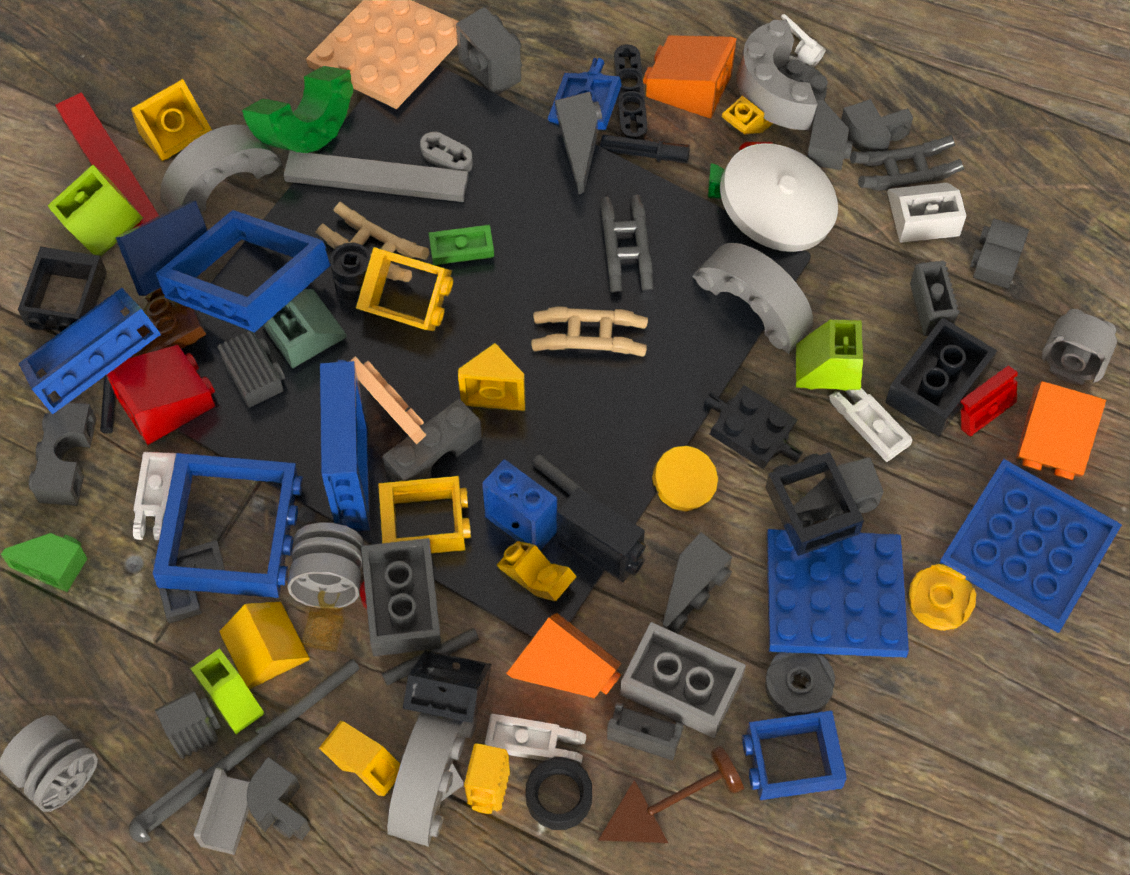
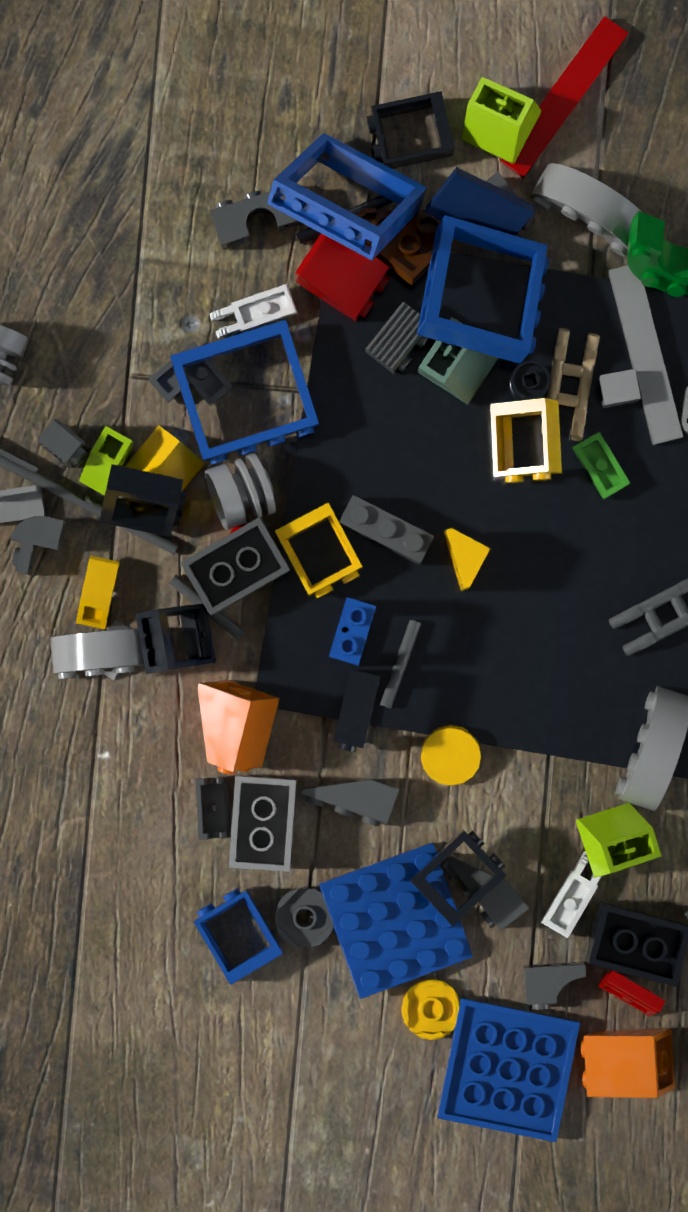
camera: 70 degrees right, 25 degrees up
(48, 559) = (159, 256): bright green slope -> none
(170, 120) = (627, 136): yellow slope -> none
(268, 651) = (147, 488): none -> black window
(344, 445) = (339, 464): blue window -> none
(389, 400) = (400, 477): light nougat plate -> none
(398, 199) = (619, 388): none -> light grey panel
(487, 778) = (114, 700): yellow brick -> none
(532, 738) = (168, 718): white hinge -> none
(534, 572) = (310, 665): yellow slope -> none
(559, 766) = (155, 760): black tyre -> none
(603, 342) = (542, 608): tan piece -> none
(635, 819) = (137, 828): reddish brown piece -> none
(753, 427) = (525, 795): black plate -> none
(952, 475) = (545, 981): none -> dark grey arch

